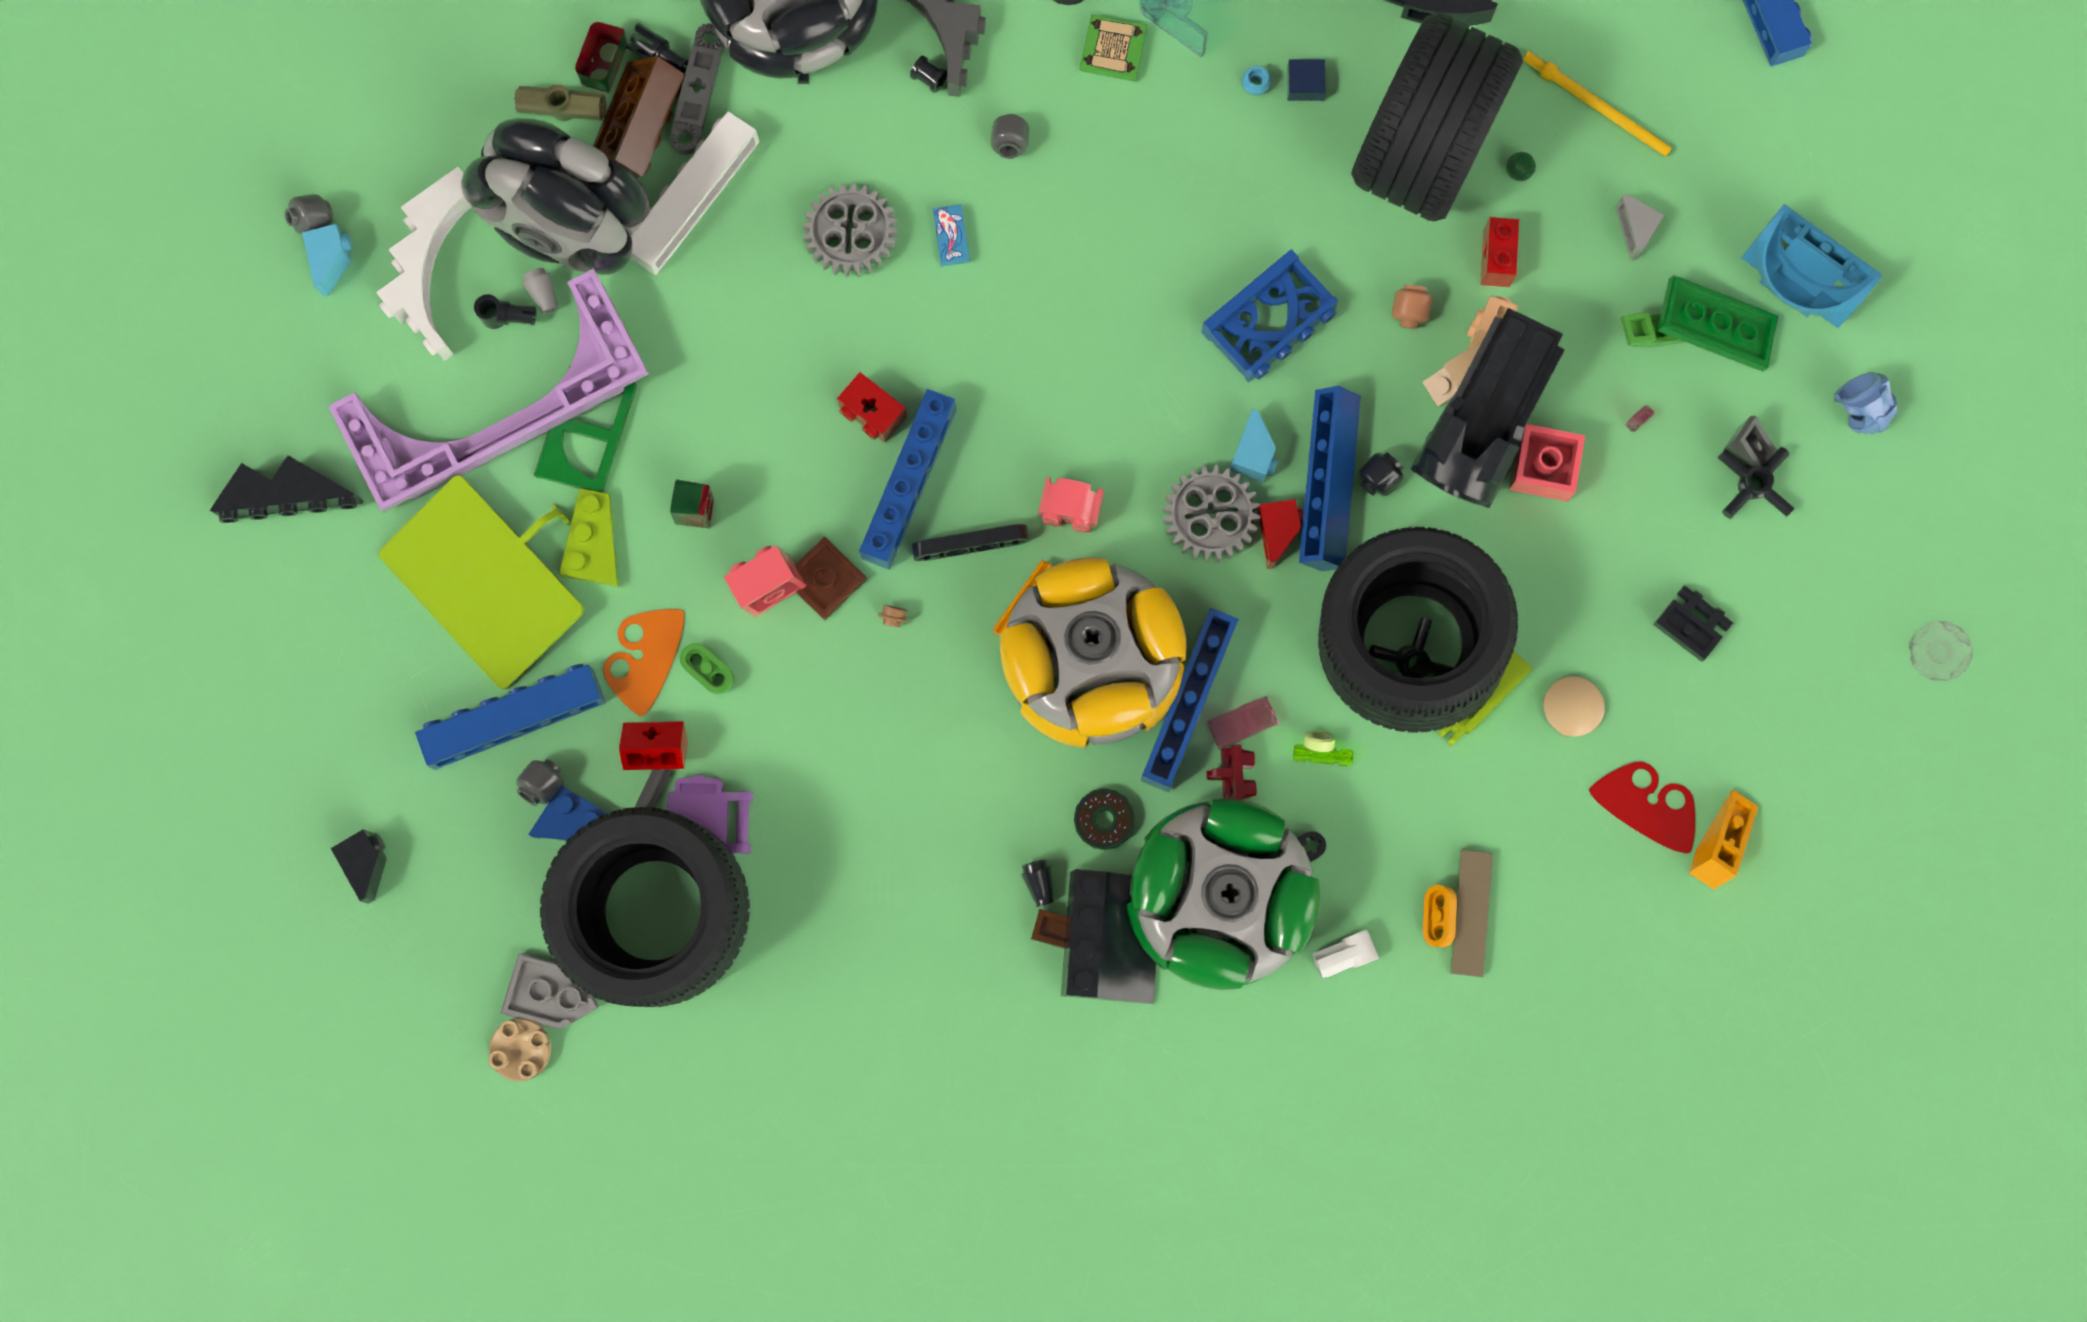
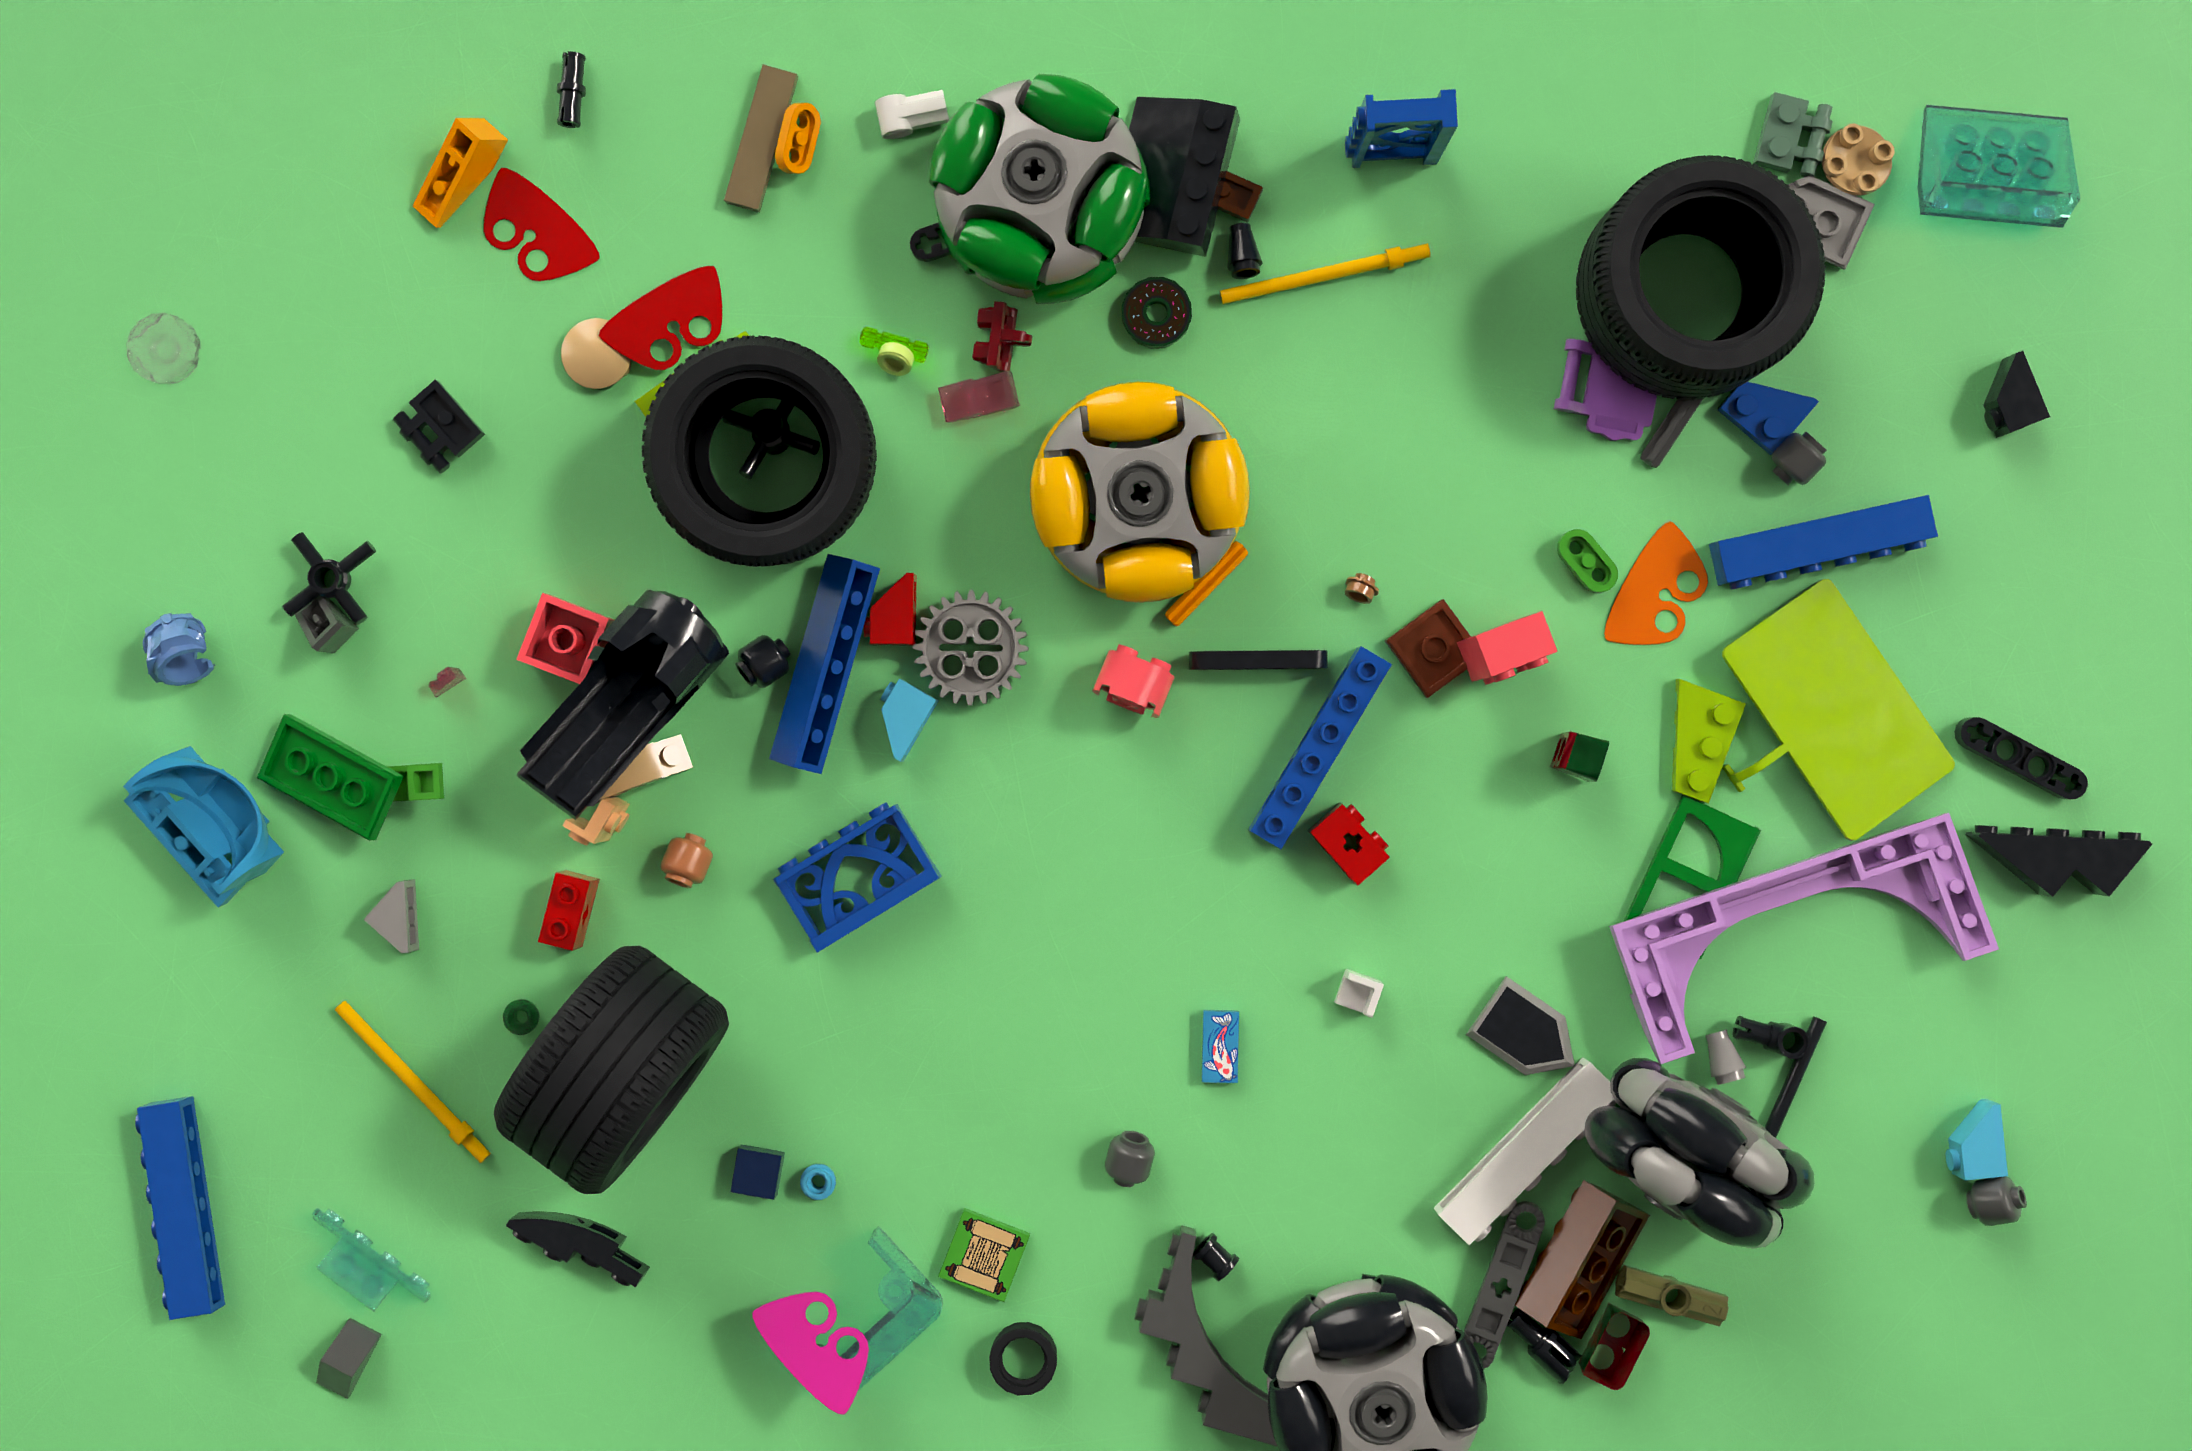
camera: 175 degrees left, 10 degrees up
(323, 570) = (2019, 761): none -> black beam
(398, 1063) = (1996, 166): none -> clear light blue slope
(430, 220) = (1883, 1077): white arch -> none
(482, 282) = (1794, 1079): none -> black bar
(587, 1065) = (1782, 131): none -> sand green plate
(653, 745) = (1662, 478): red brick -> none
(707, 287) = (1523, 1030): none -> black tile
(823, 229) = (1373, 1077): light grey gear -> none
(844, 293) = (1359, 992): none -> white panel
(910, 898) = (1392, 258): none -> yellow bar
(920, 993) = (1430, 125): none -> fence
(1189, 700) = (1023, 444): blue brick -> none
(1536, 743) = (647, 318): none -> red piece
(1643, 927) = (571, 89): none -> black pin

